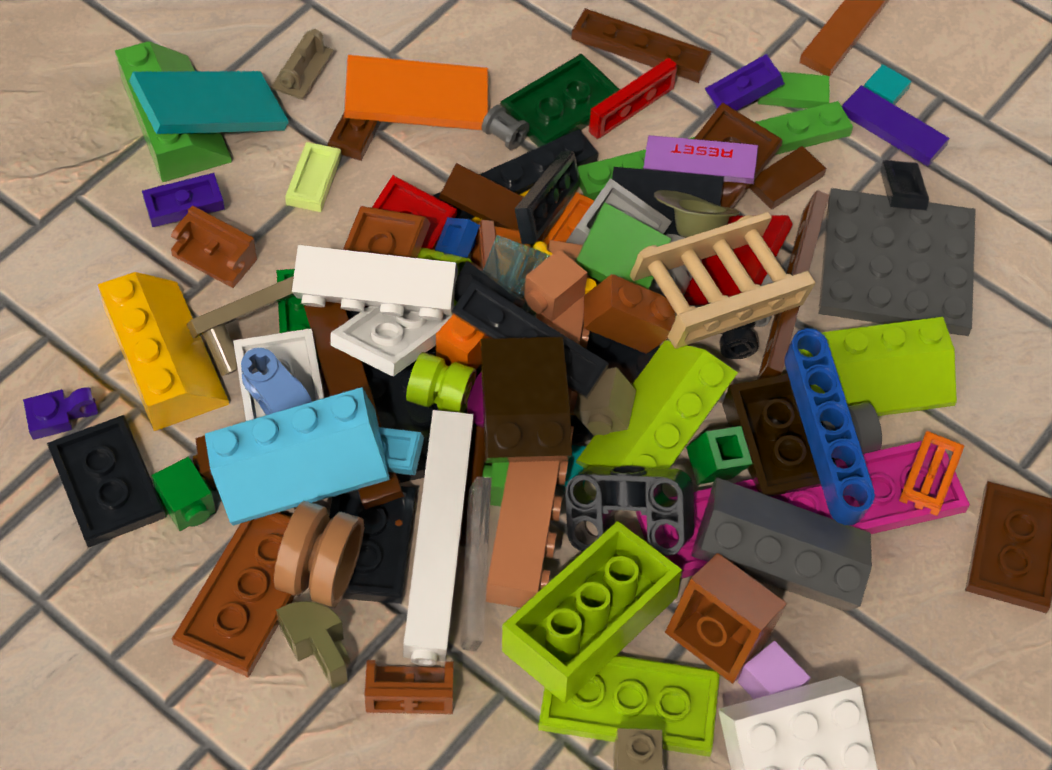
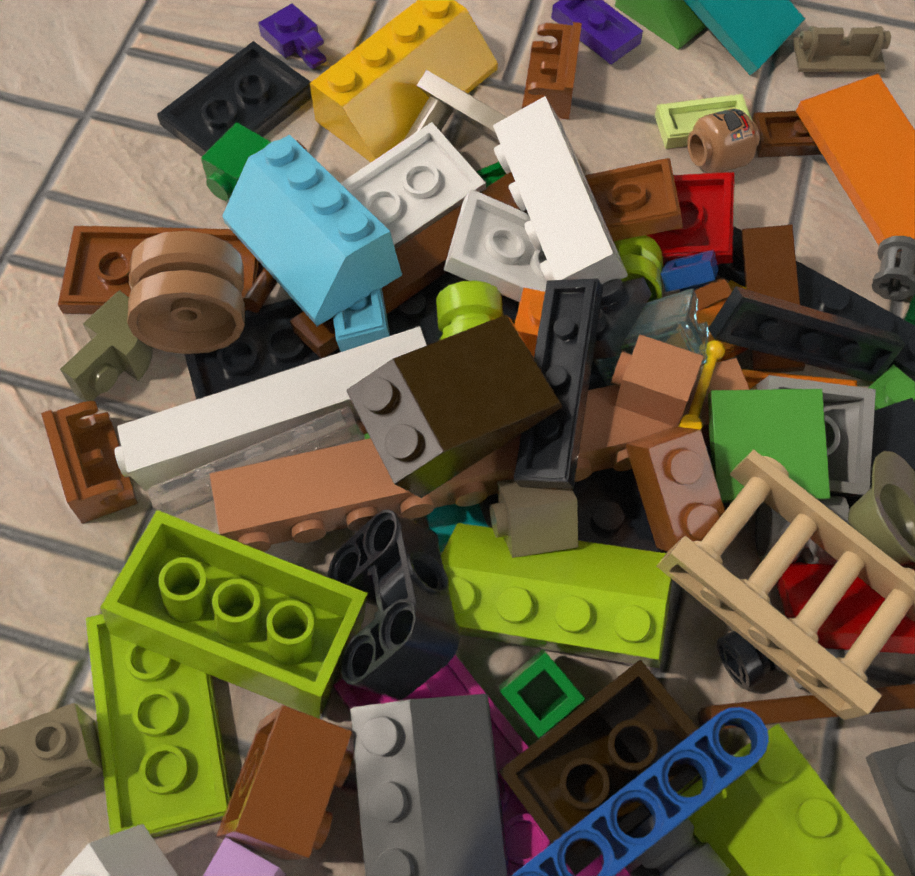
camera: 70 degrees right, 5 degrees up
(277, 388) = (386, 171): medium blue piece -> none
(348, 171) = (723, 141): none -> medium nougat head

